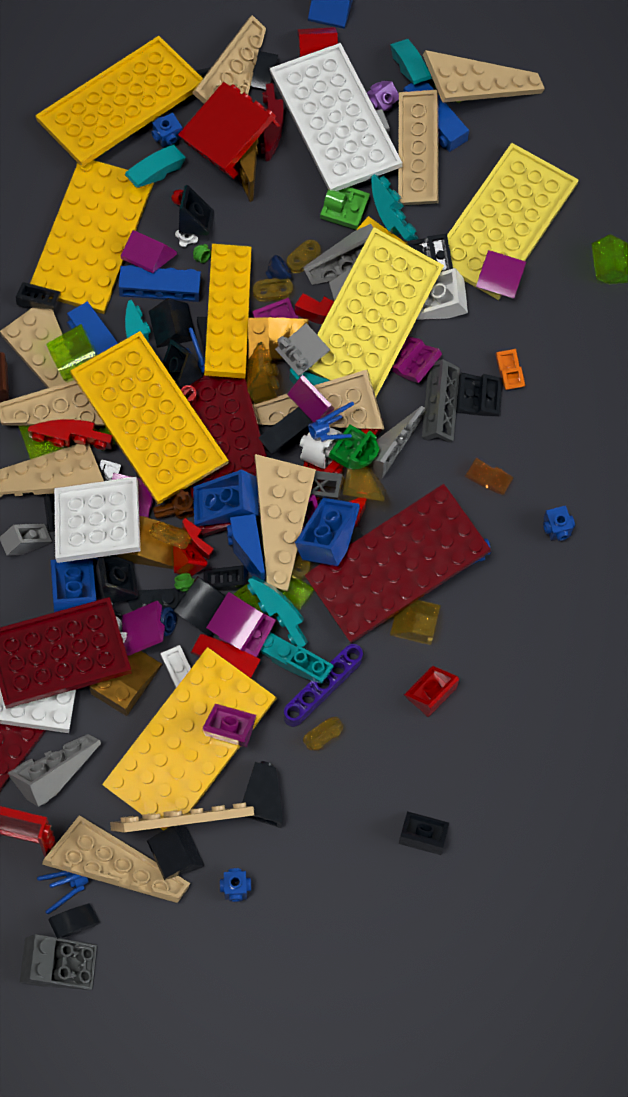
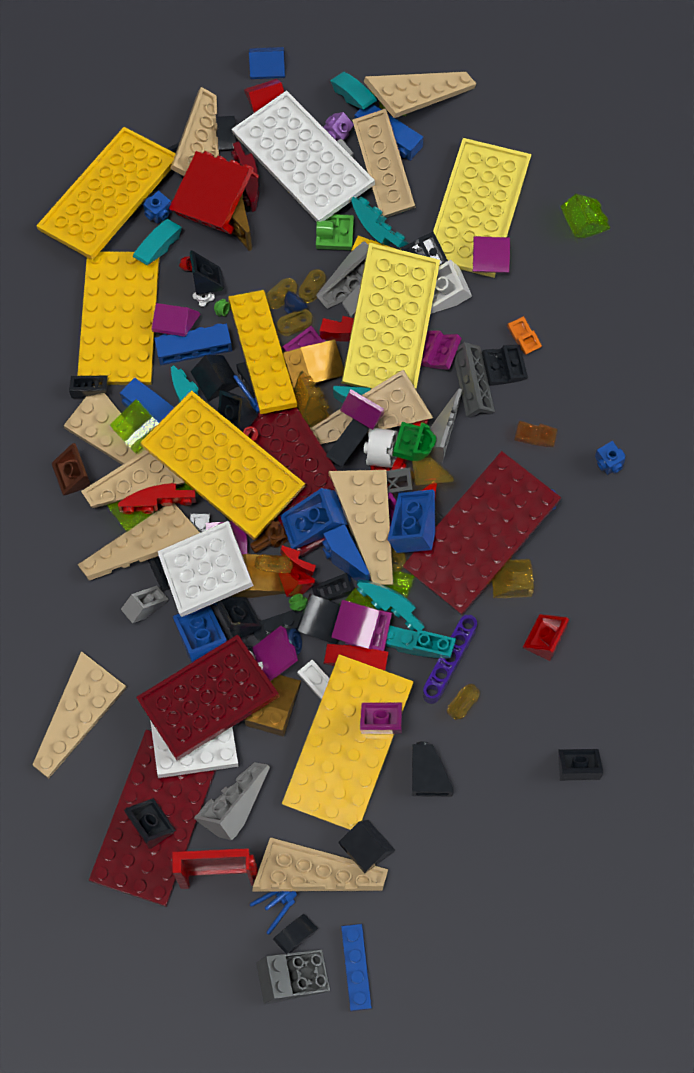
camera: 10 degrees left, 0 degrees up
(126, 974) = (356, 967): none -> blue plate
(175, 818) = (363, 814): tan wing -> none
(238, 892) = (426, 866): blue brick -> none
(267, 253) = (280, 291): none -> clear yellow plate
(302, 349) = (339, 367): light grey hinge -> none
(321, 427) = (379, 431): blue plant -> none

